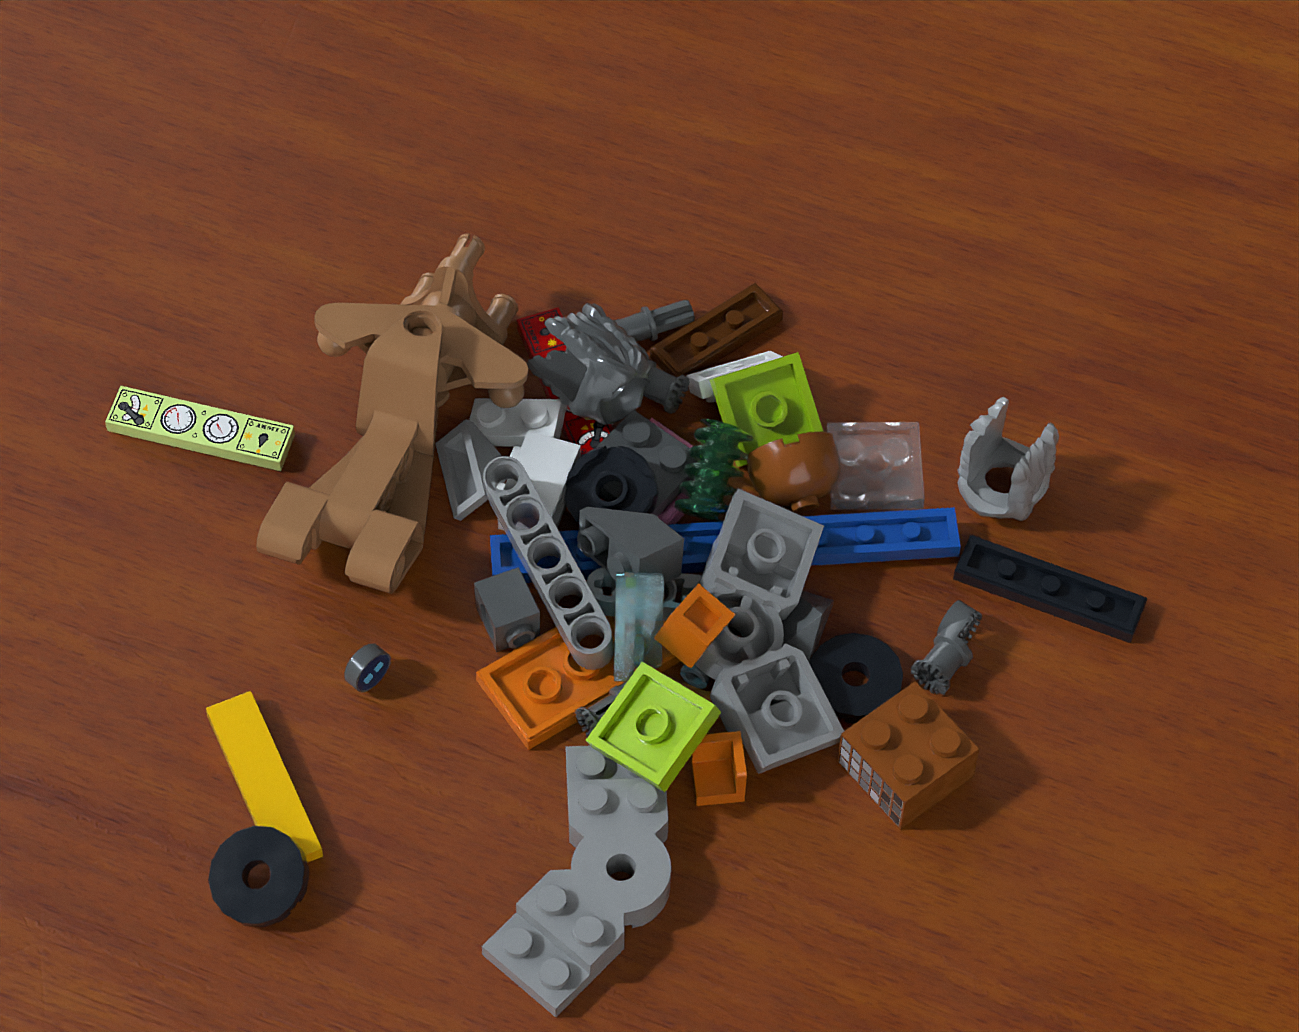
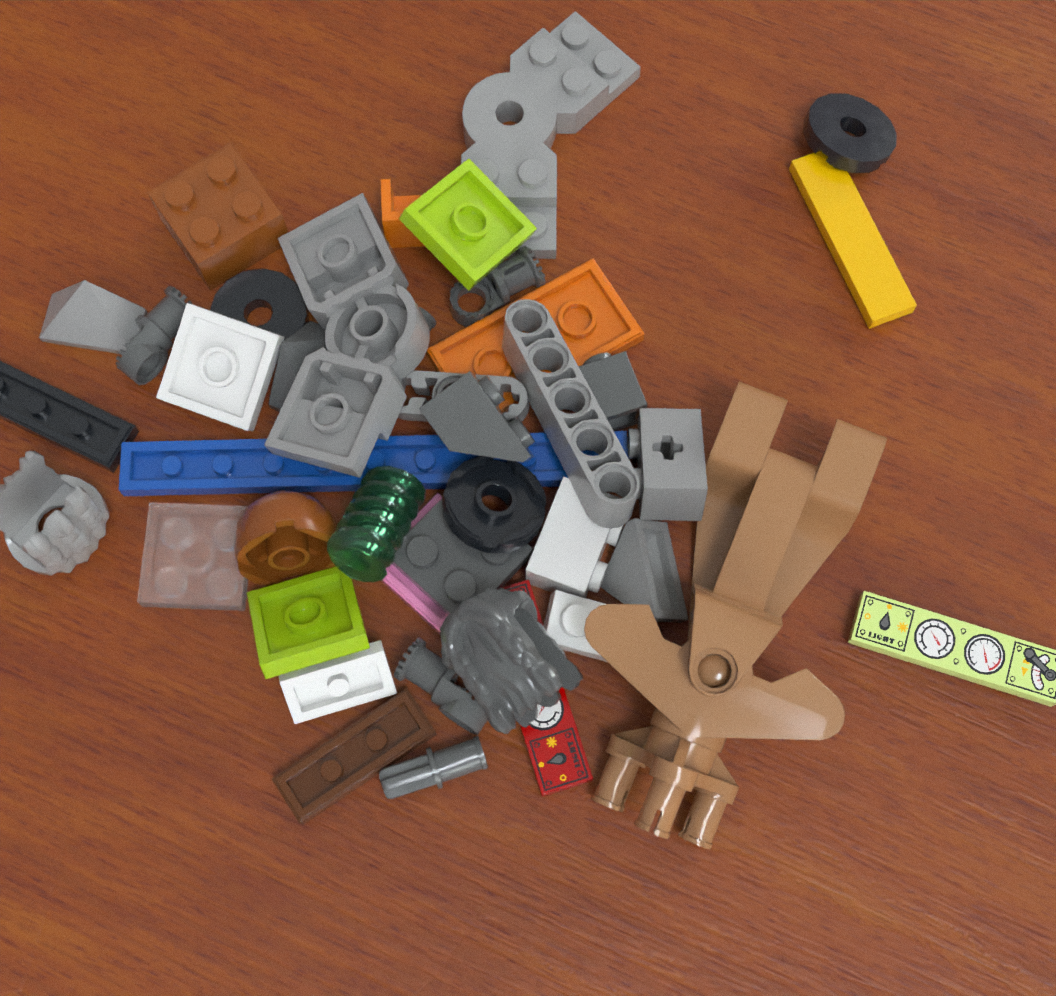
camera: 175 degrees left, 15 degrees up
(367, 667) = (756, 337): tile -> none
(441, 515) = (669, 464): none -> light grey brick
(637, 622) = (478, 342): clear light blue bracket -> none
(694, 625) = (418, 313): orange panel -> none
(880, 612) = (220, 367): none -> white plate
(1017, 668) = (90, 319): none -> light grey slope

